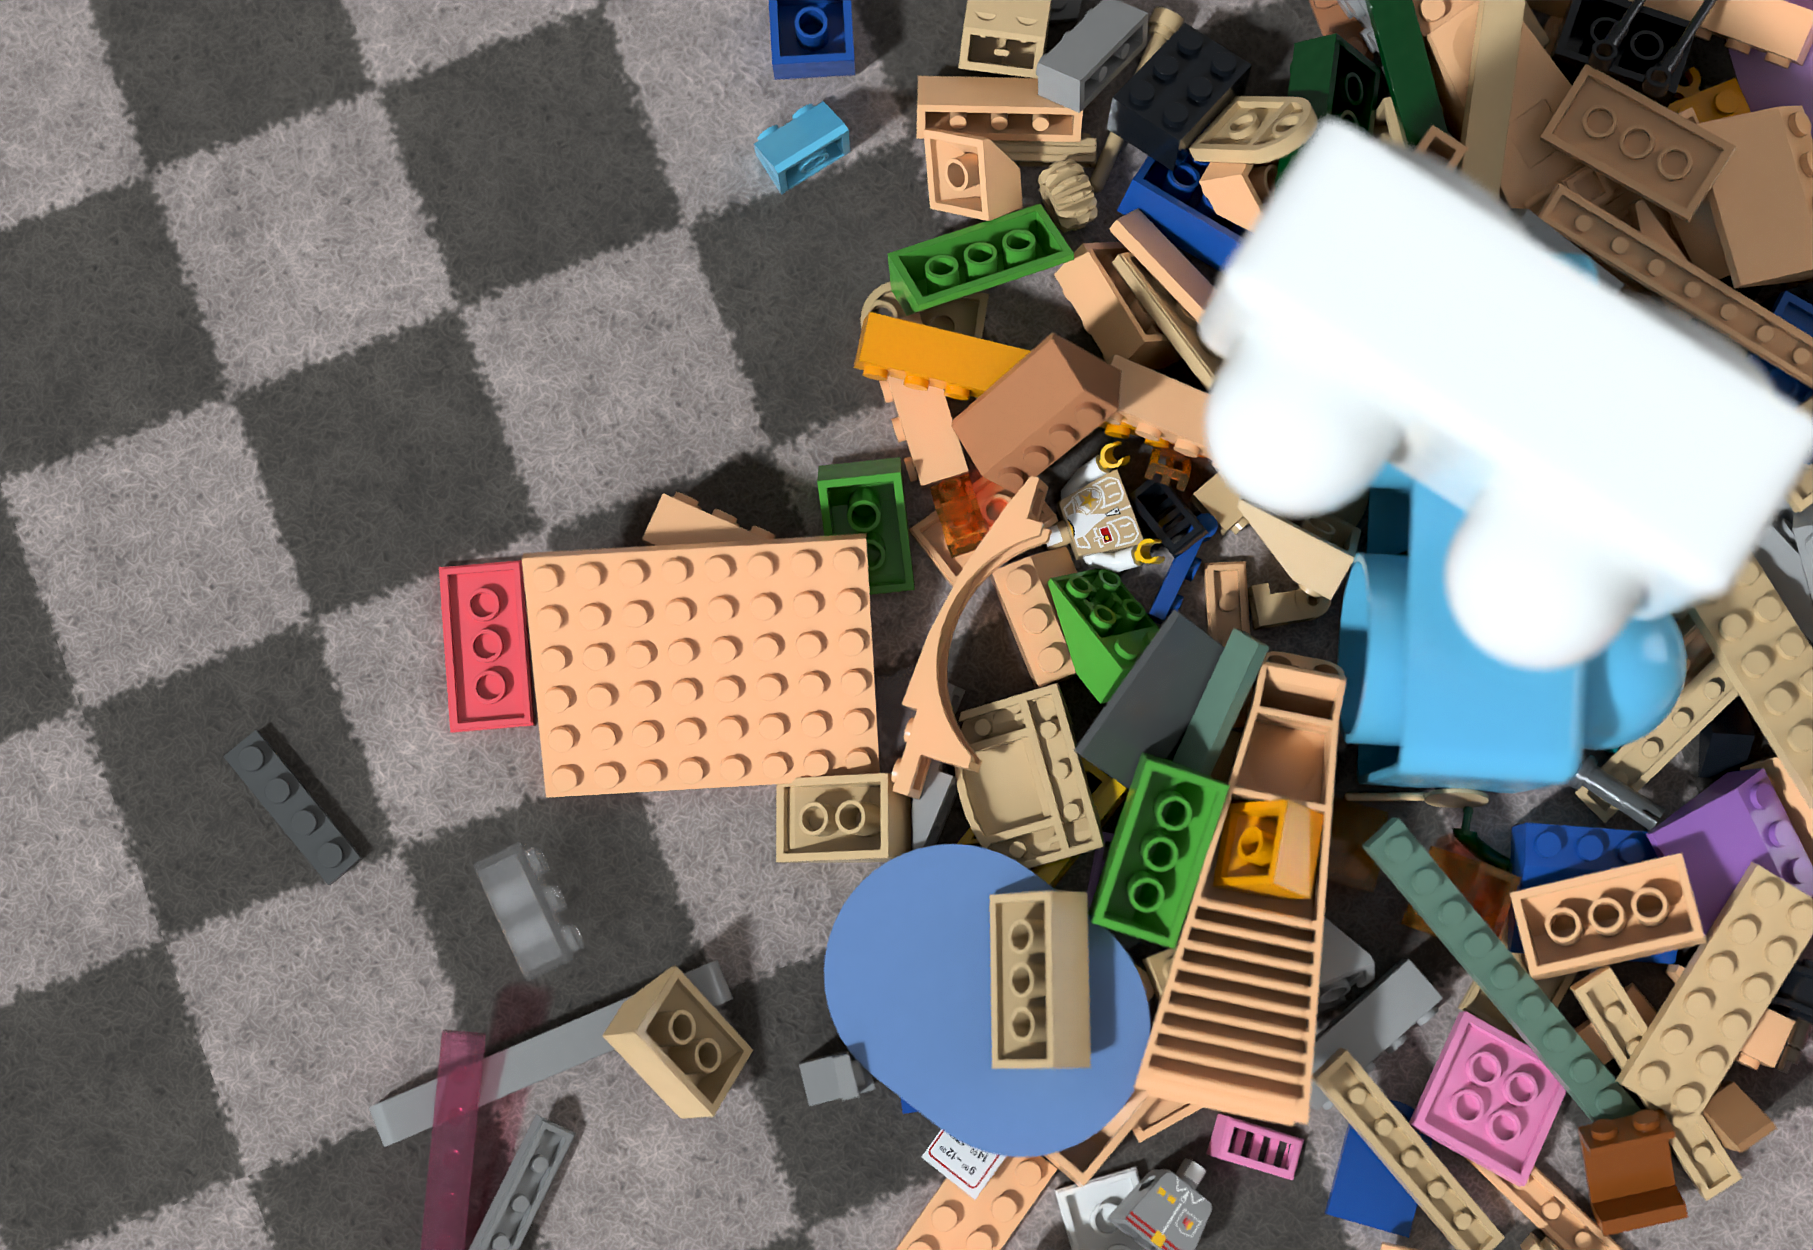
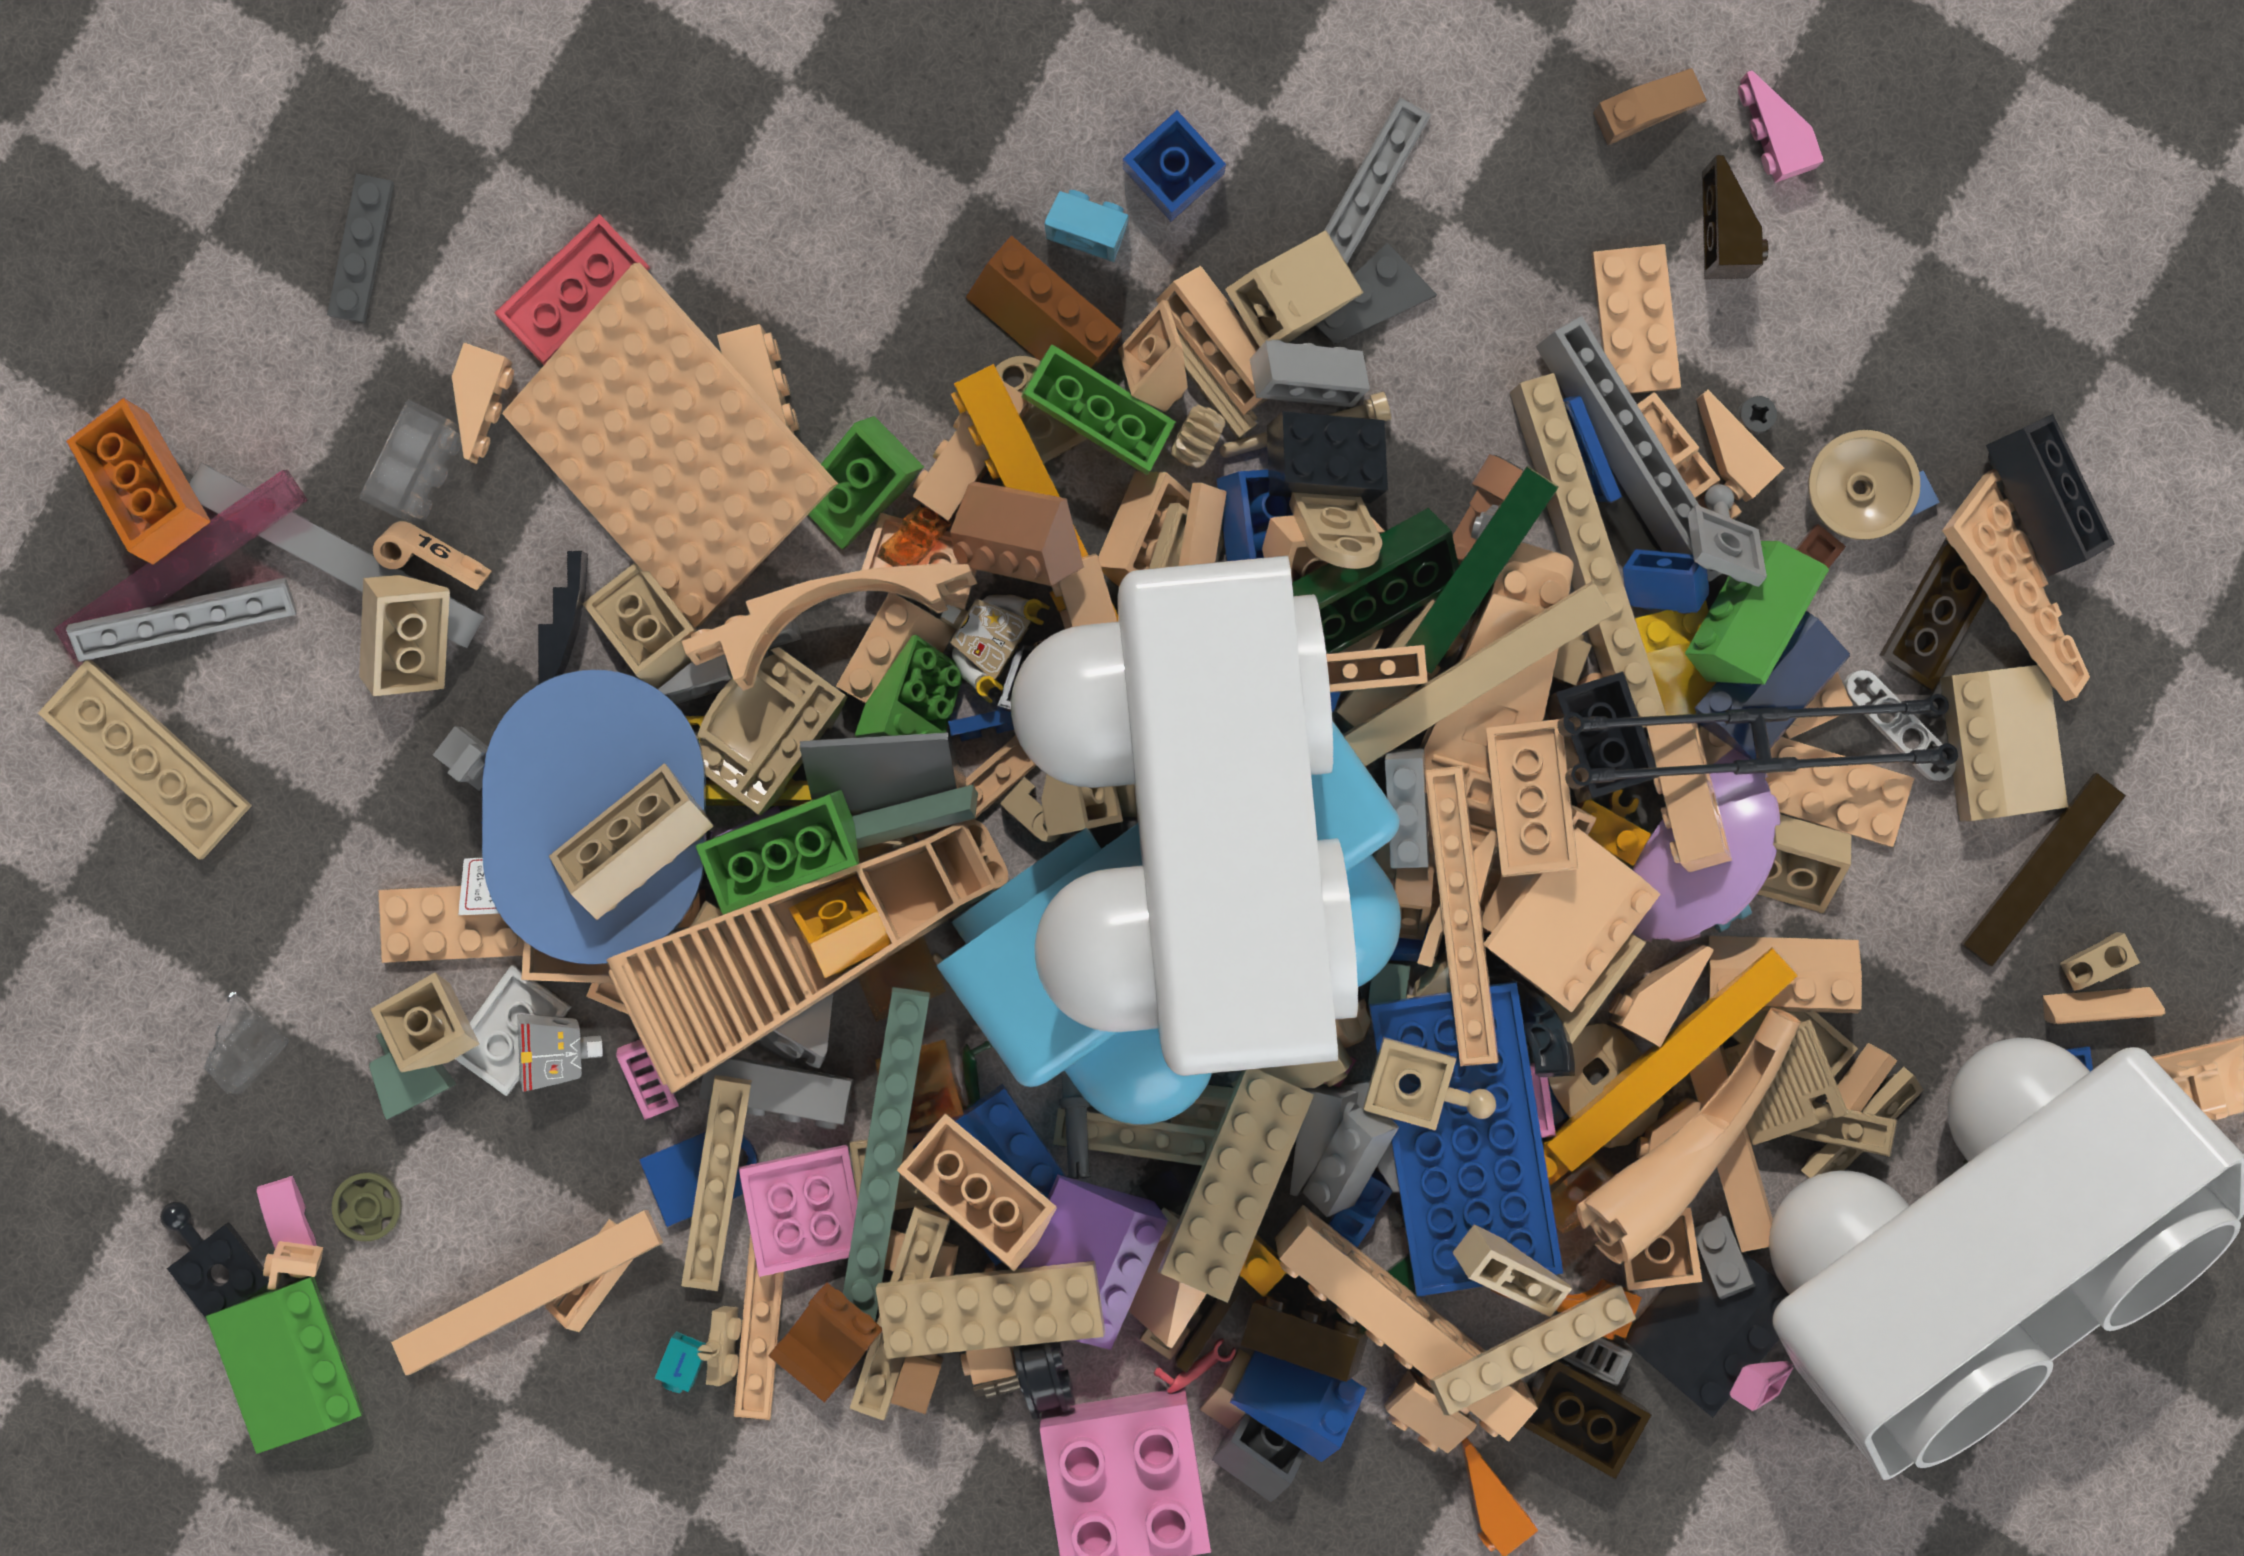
camera: 55 degrees right, 5 degrees up
(342, 1177) = (138, 481): none -> orange brick
(503, 797) = (477, 389): none -> light nougat slope
(591, 976) = (405, 539): none -> light nougat door
(791, 907) = (558, 639): none -> black slope
(841, 243) = (1041, 307): none -> dark orange slope

